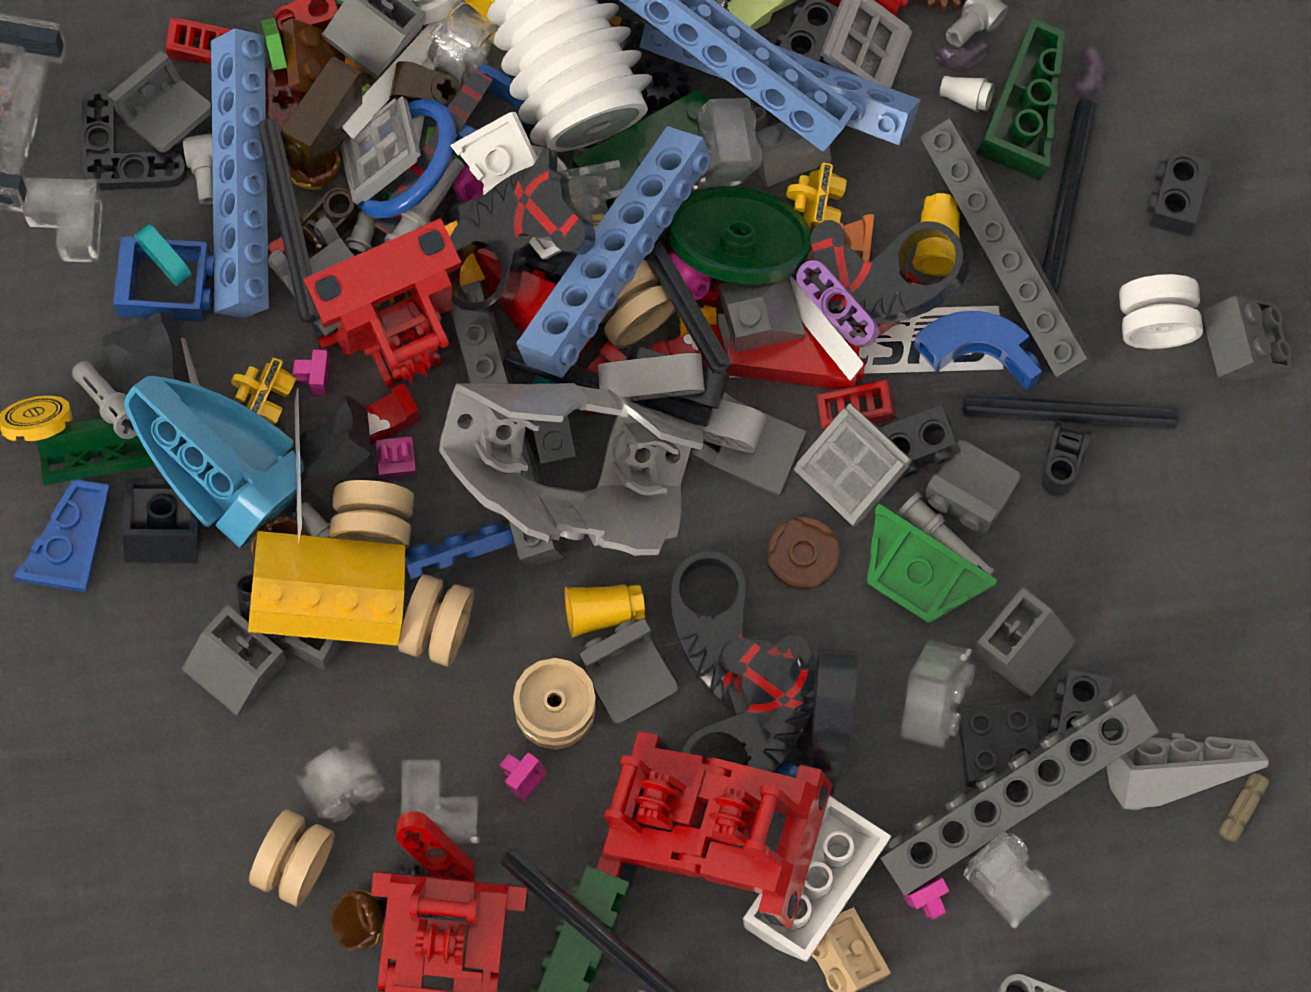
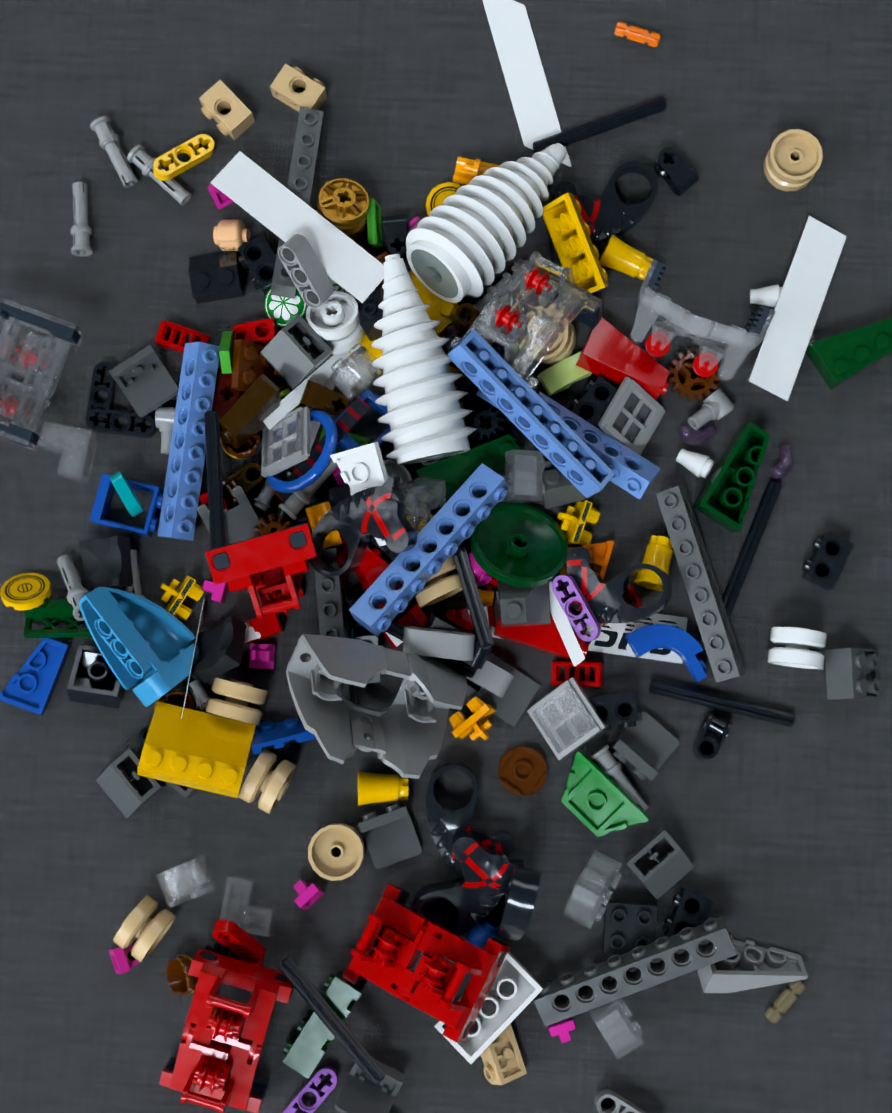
camera: 15 degrees right, 10 degrees up
(261, 916) = (120, 960): none -> dark pink tile
(723, 492) = (464, 726): none -> light orange hips

